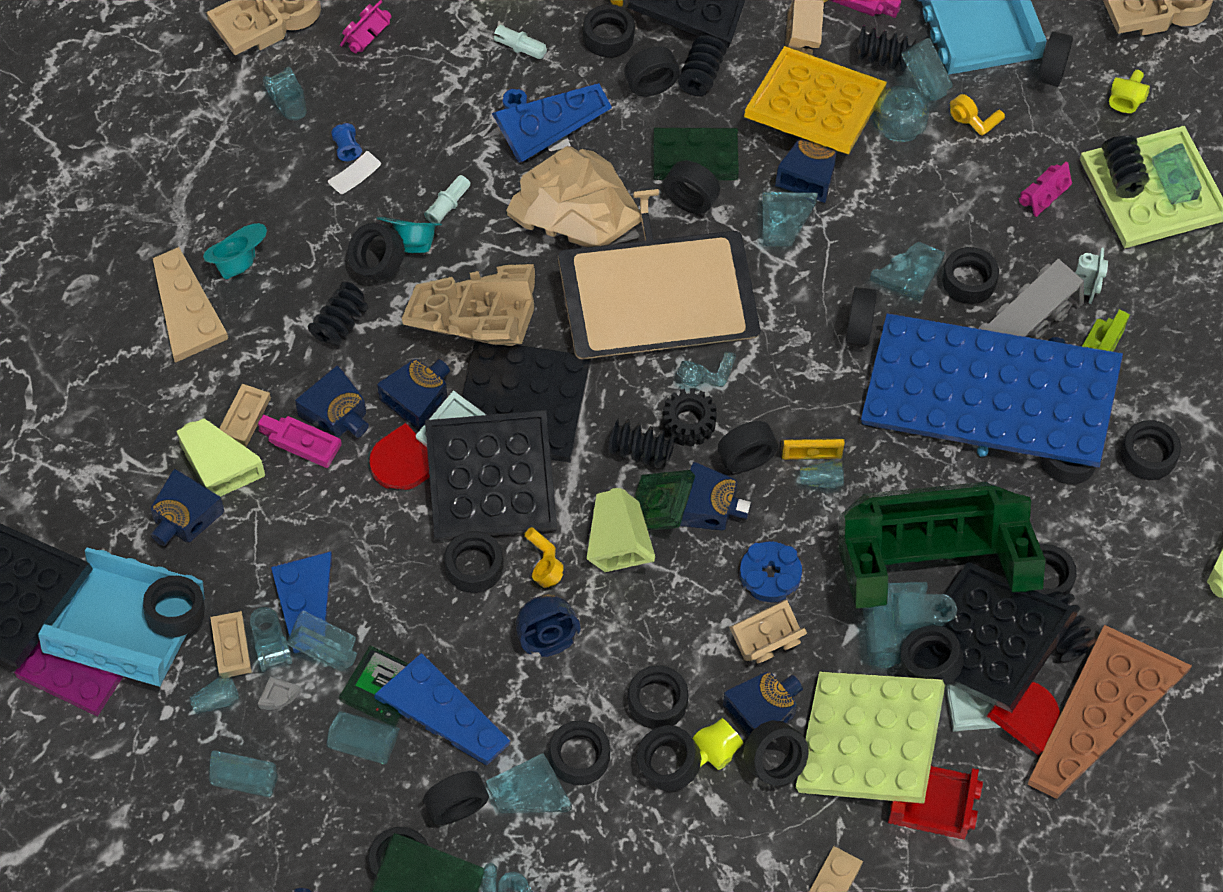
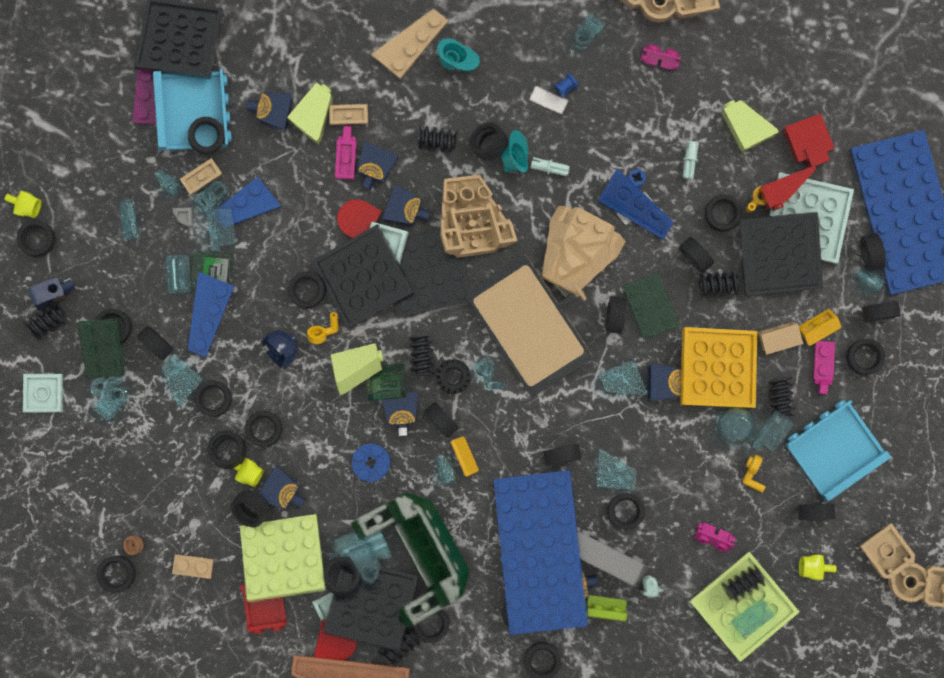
camera: 70 degrees right, 25 degrees up
(767, 631) = (327, 476): tan bracket -> none

